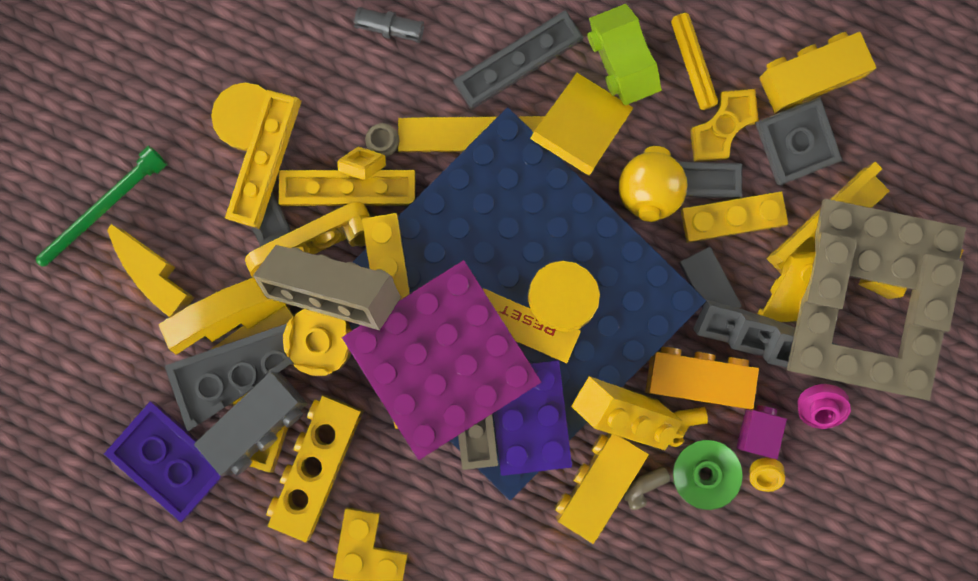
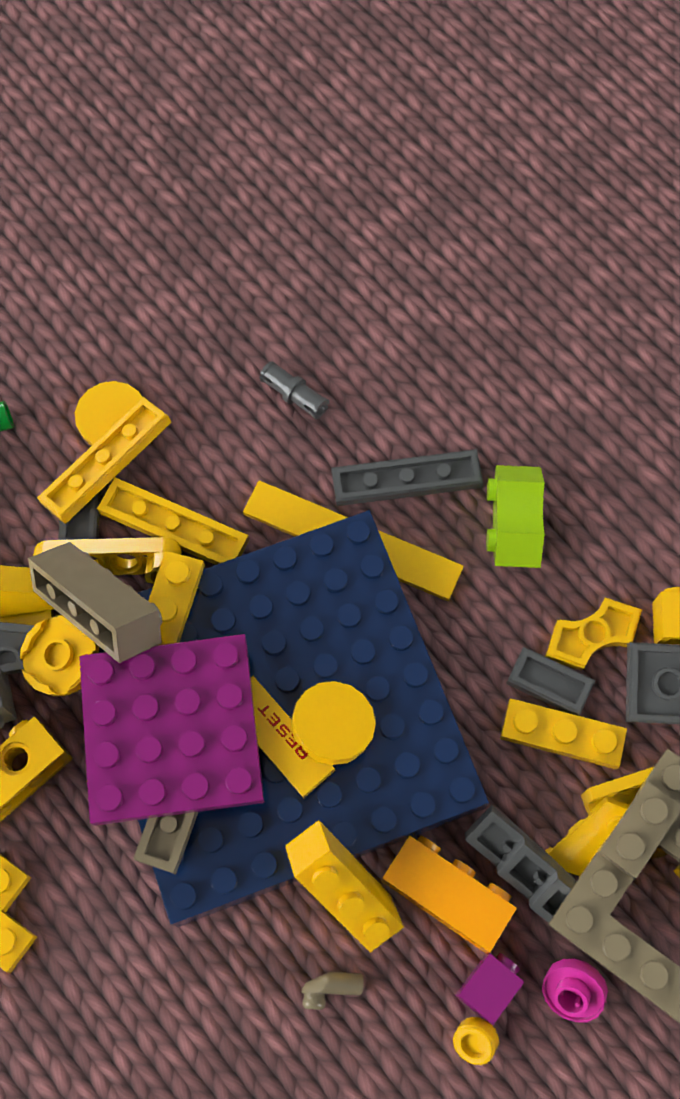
camera: 30 degrees right, 15 degrees down
(361, 163) = (198, 505): yellow tile -> none
(382, 139) = (231, 494): dark tan plate -> none
(534, 426) = (235, 850): dark purple plate -> none
(582, 123) = (439, 562): yellow tile -> none
(600, 486) = (279, 960): yellow brick -> none
(653, 184) = (487, 657): yellow brick -> none
(690, 418) = (412, 932): yellow arm -> none
(694, 61) = (588, 556): yellow axle -> none
(709, 278) = (506, 786): dark grey tile -> none
(724, 478) = (431, 1011): bright green dish -> none

